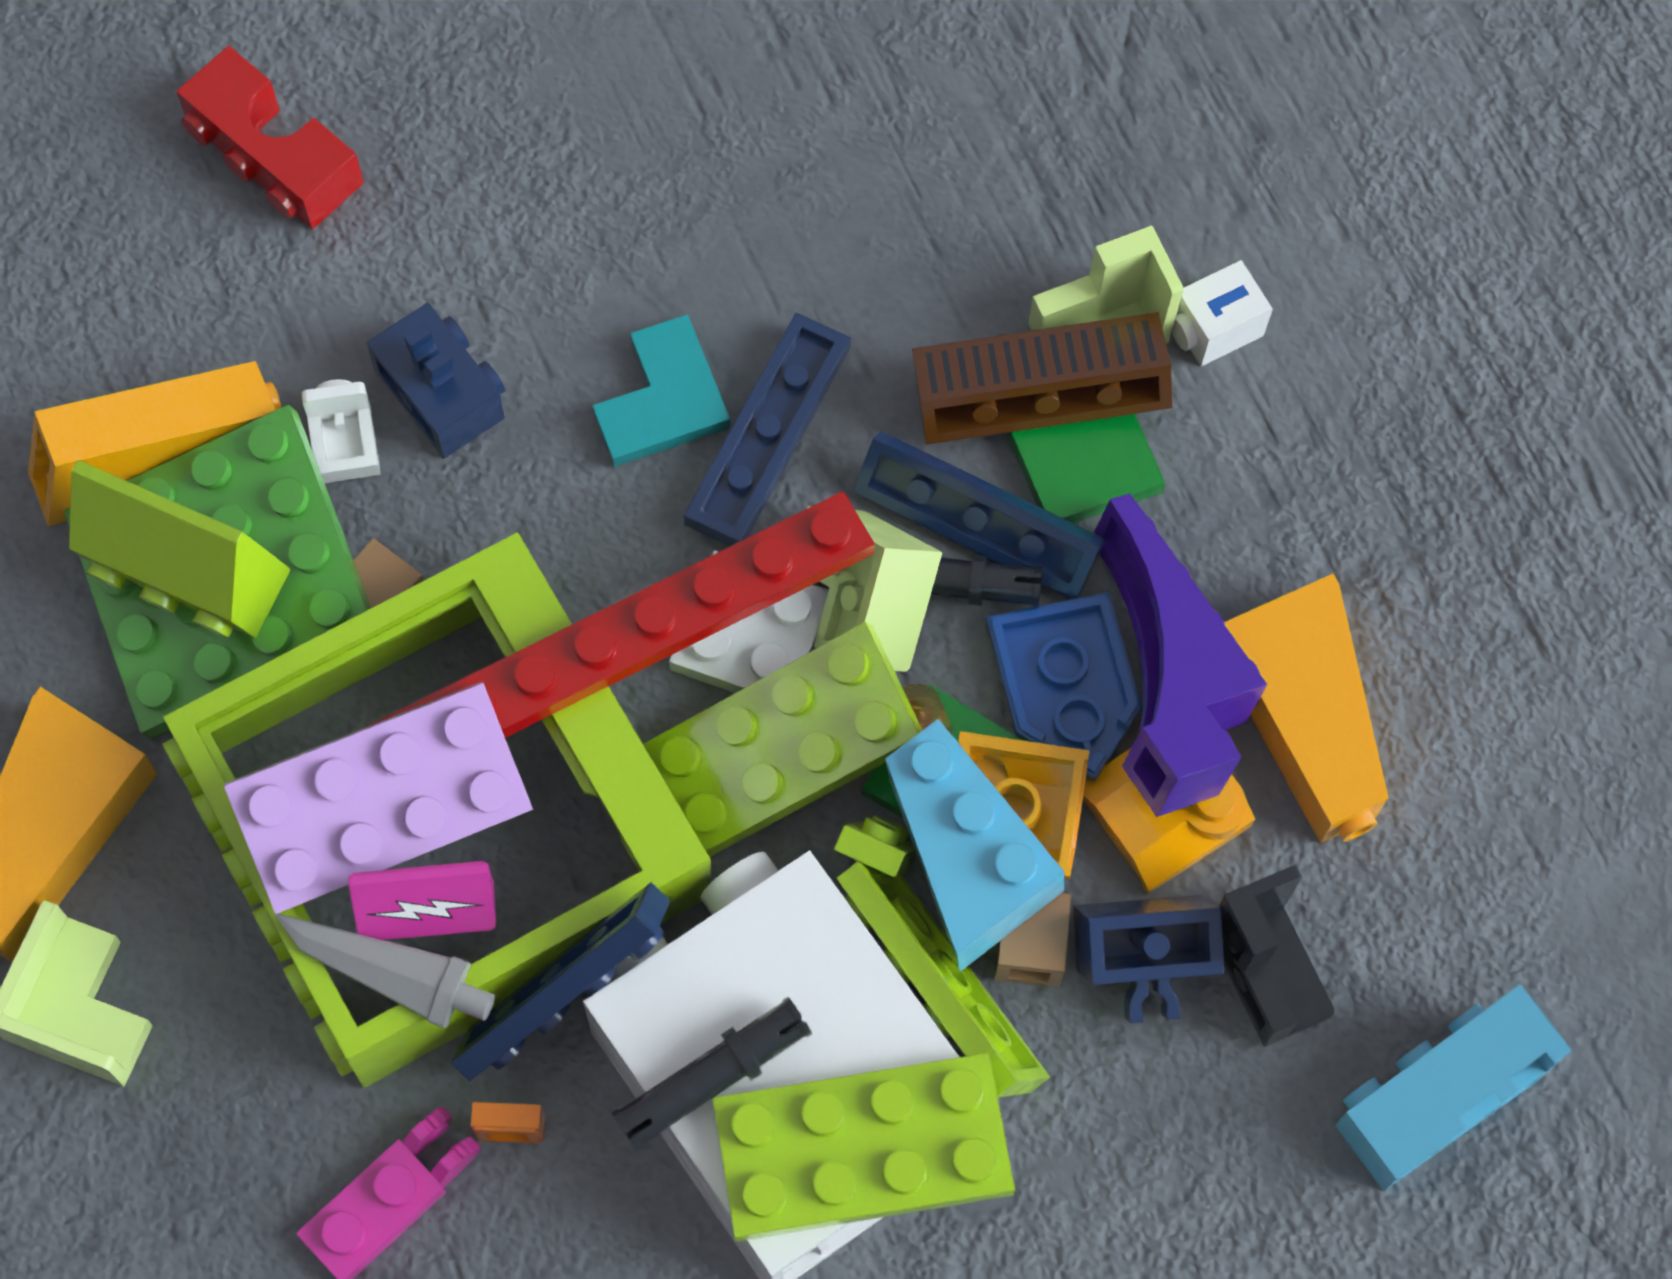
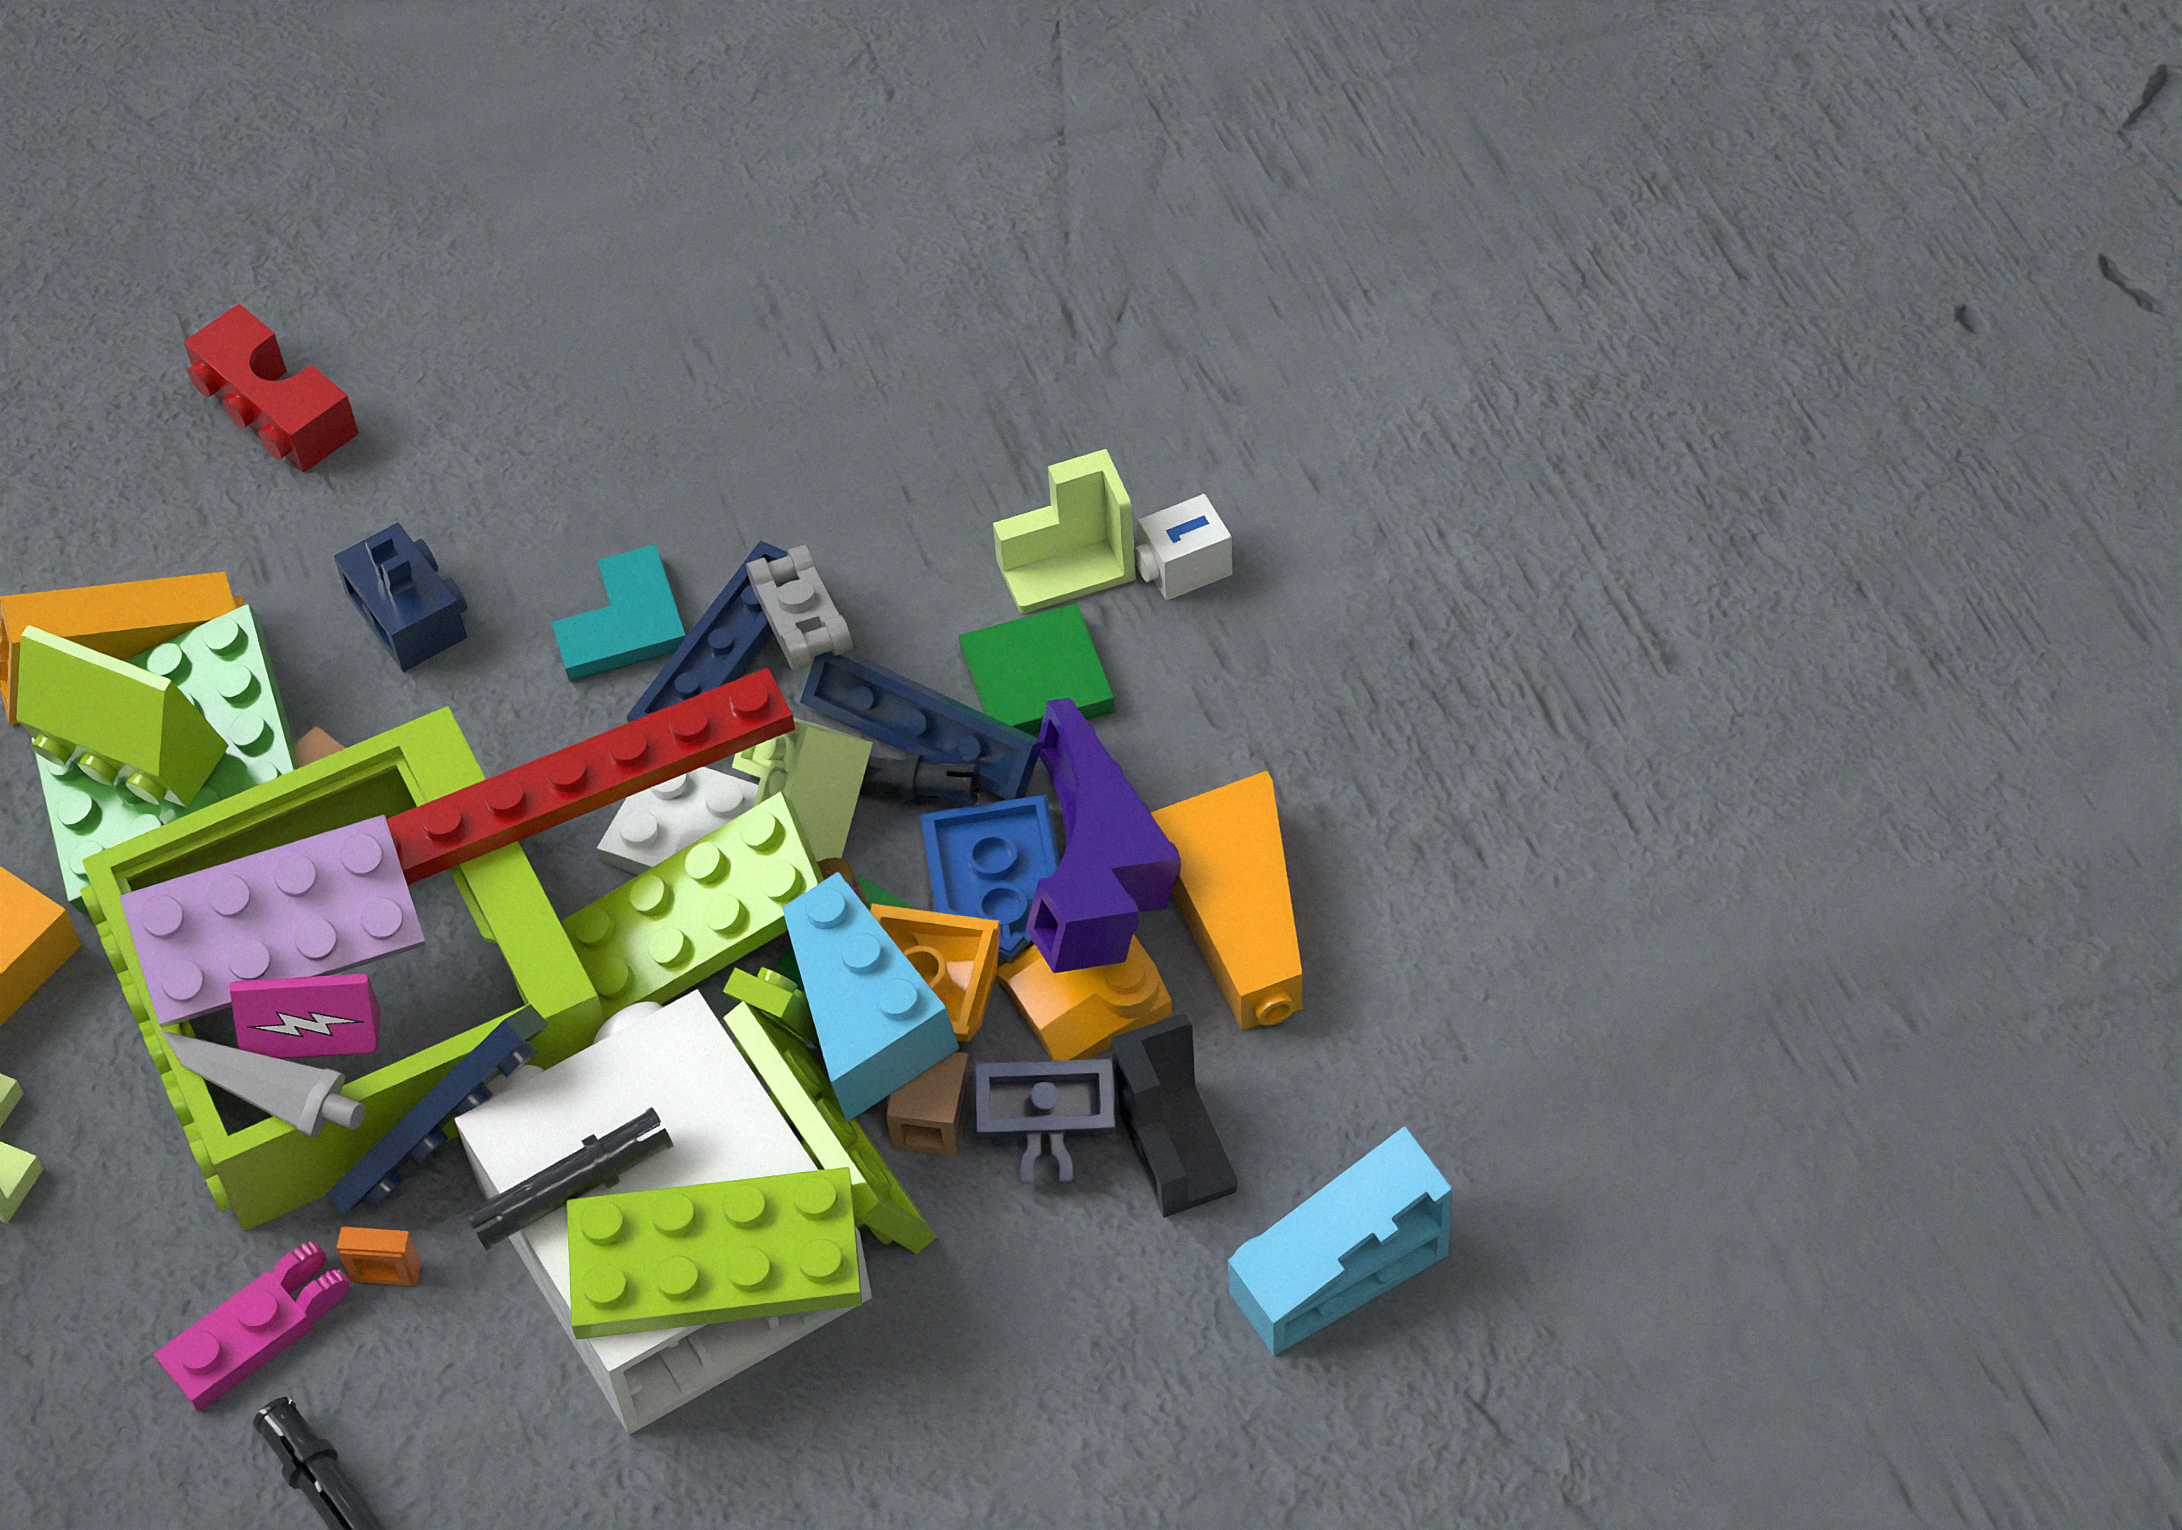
camera: 10 degrees right, 15 degrees down
(341, 430) = (302, 637): white bracket -> none
(850, 398) = (799, 609): none -> light grey plate
(1043, 378) = (994, 597): reddish brown brick -> none

